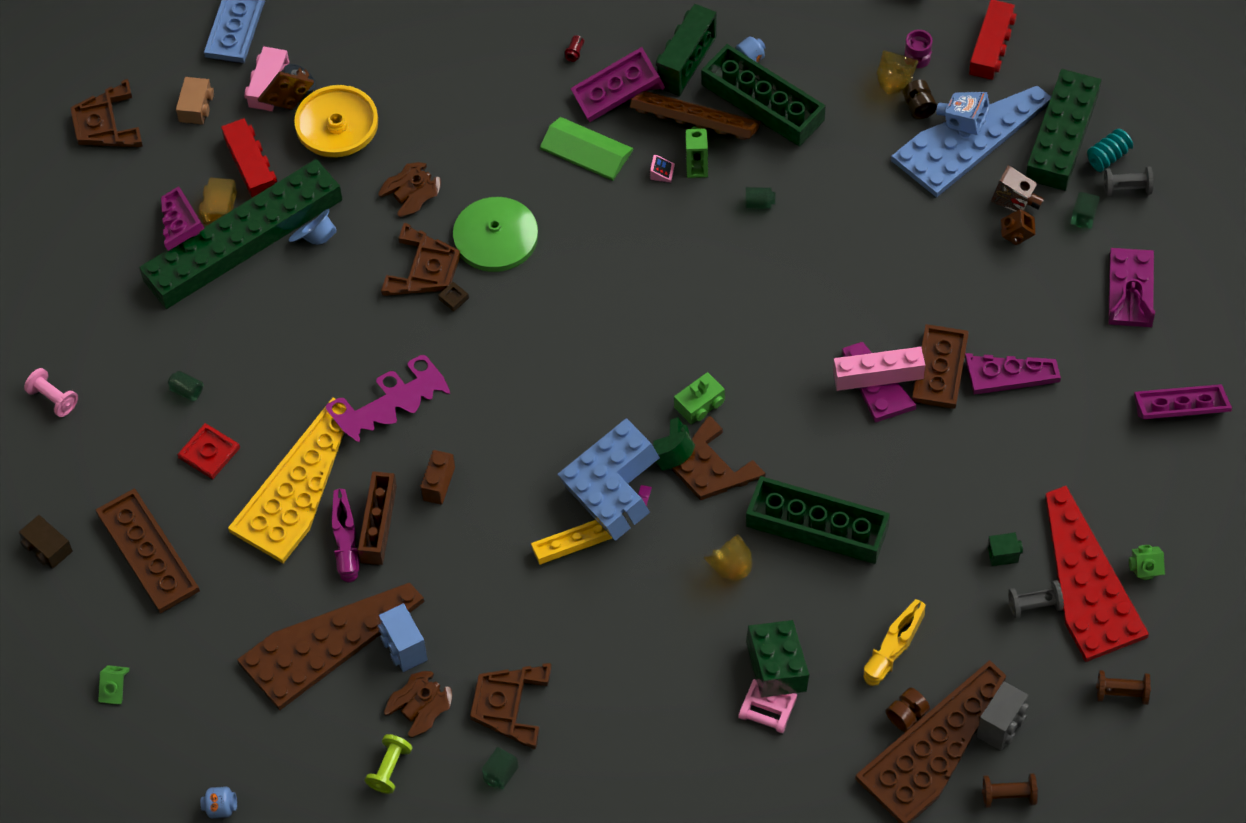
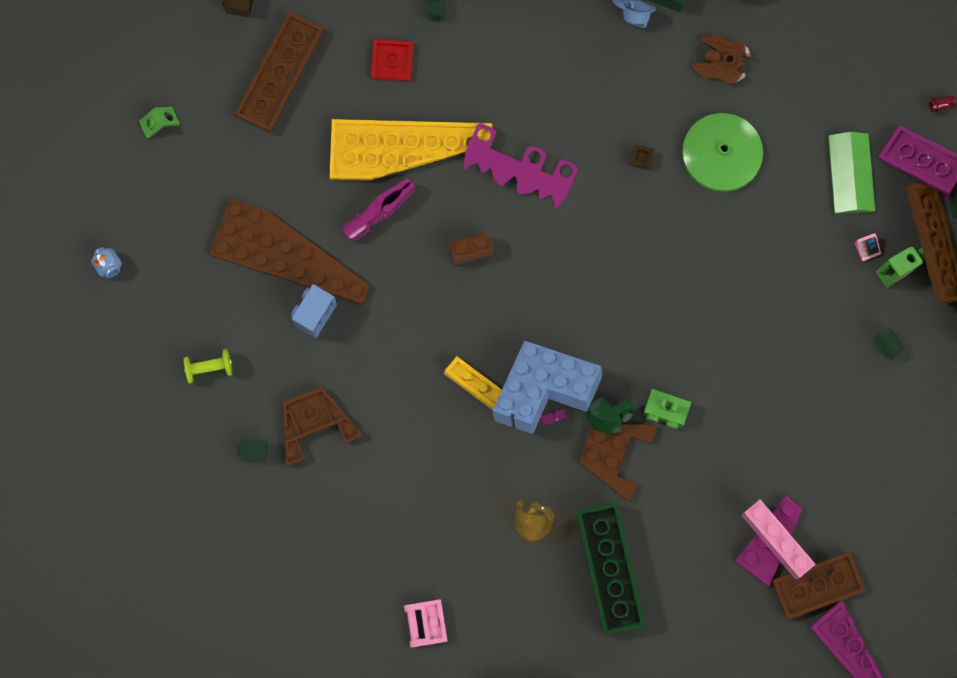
camera: 55 degrees right, 20 degrees up
(377, 518) = (406, 226): reddish brown brick -> none
(421, 700) = (276, 358): reddish brown piece -> none
(431, 269) = (660, 122): reddish brown wing -> none
(777, 658) = (466, 609): dark green brick -> none

